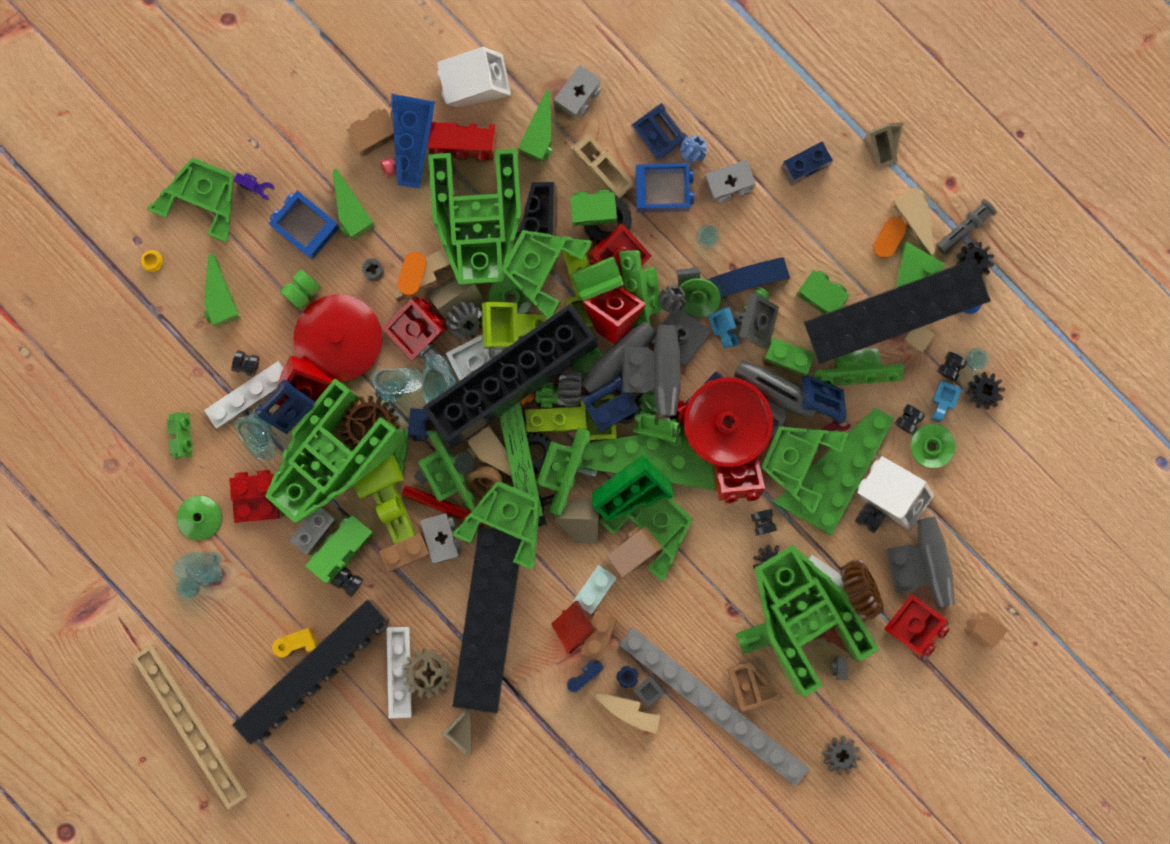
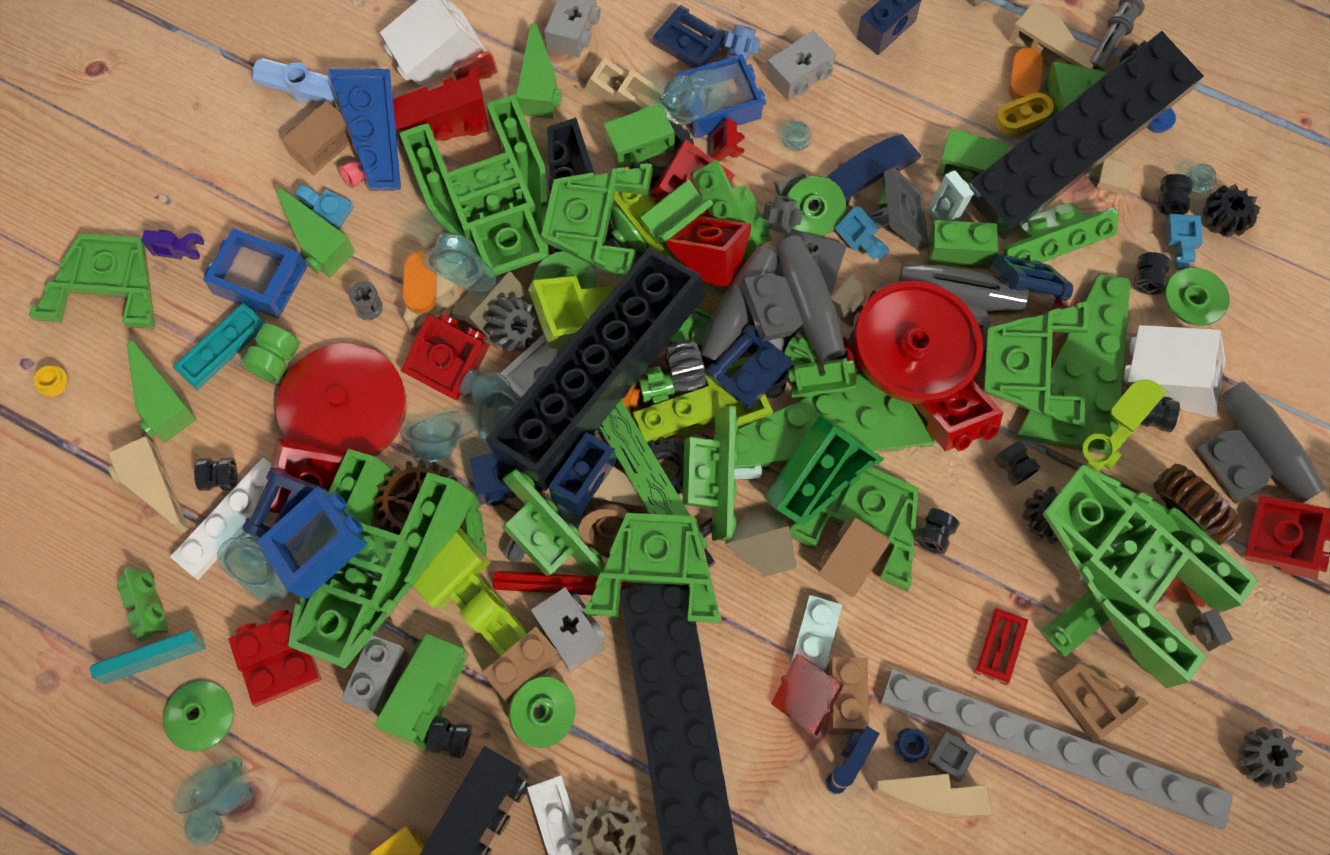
camera: 15 degrees left, 15 degrees down
(177, 472) = (147, 657): none -> teal tile
(199, 349) = (144, 474): none -> tan slope
(268, 270) = (219, 346): none -> teal tile
(297, 437) = (312, 542): none -> blue window
(359, 74) = (295, 80): none -> light blue piece
(364, 188) = (328, 206): none -> dark azure plate
(414, 591) = (556, 712): none -> bright green dish
(441, 269) = (458, 262): none -> clear light blue piece
(478, 446) = (582, 474): none -> dark blue brick
(498, 108) = (482, 60): none -> clear red cone
(561, 278) = (625, 231): none -> bright green dish
(642, 189) = (693, 96): none -> clear light blue piece
(654, 224) = (725, 141): none -> red tile
(689, 552) = (937, 531): none -> black wheel
(692, 378) = (849, 300): none -> dark tan plate
(718, 620) = (992, 672): none -> red tile
(791, 325) = (950, 198): none -> light aqua plate
(838, 520) = (1129, 413): none -> lime plate
(873, 269) = (1021, 113): none -> yellow plate

